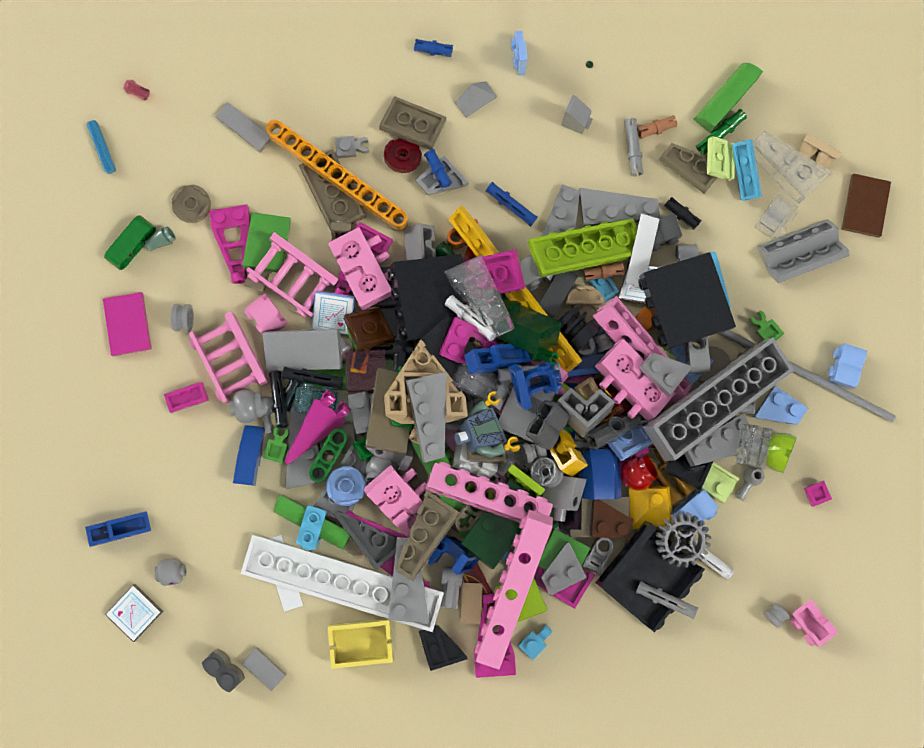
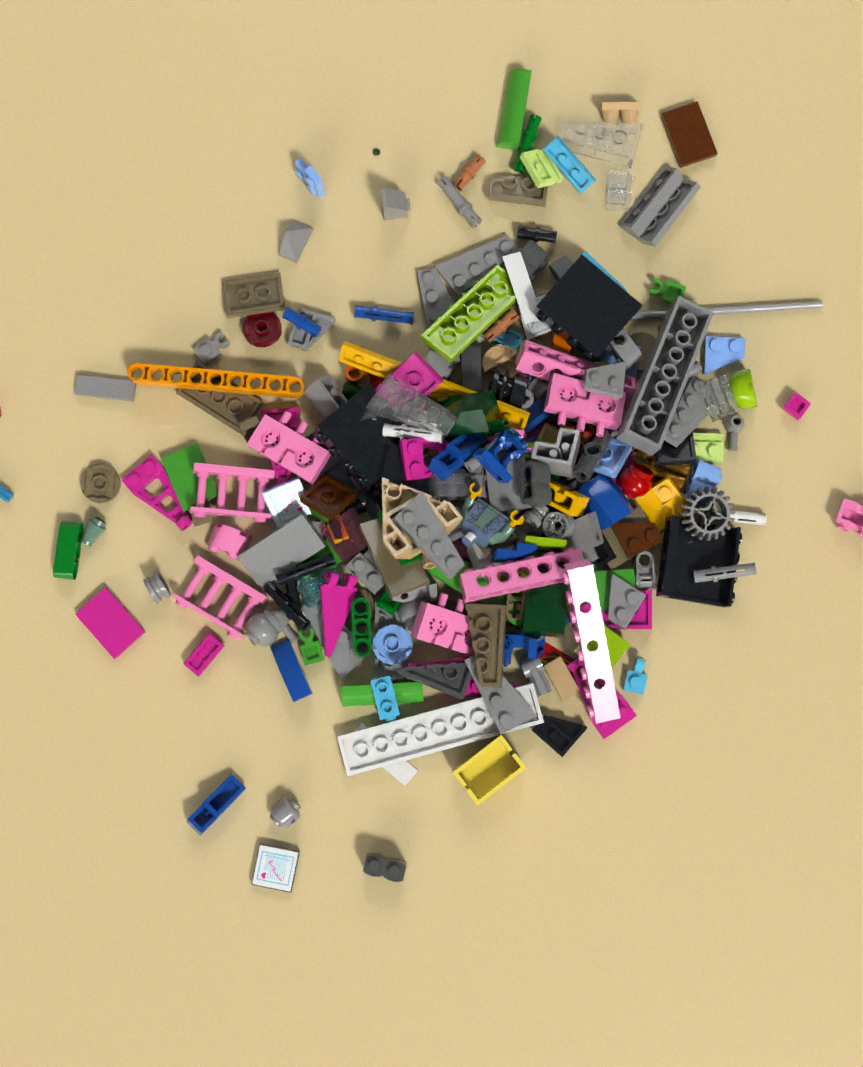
camera: 30 degrees left, 0 degrees up
(264, 669) = (418, 845): light grey tile -> none
(433, 47) = (230, 218): blue pin -> none
(499, 474) = (518, 552): none -> blue slope
(776, 615) = (824, 529): light grey wheel -> none
(847, 365) = (756, 282): light blue brick -> none

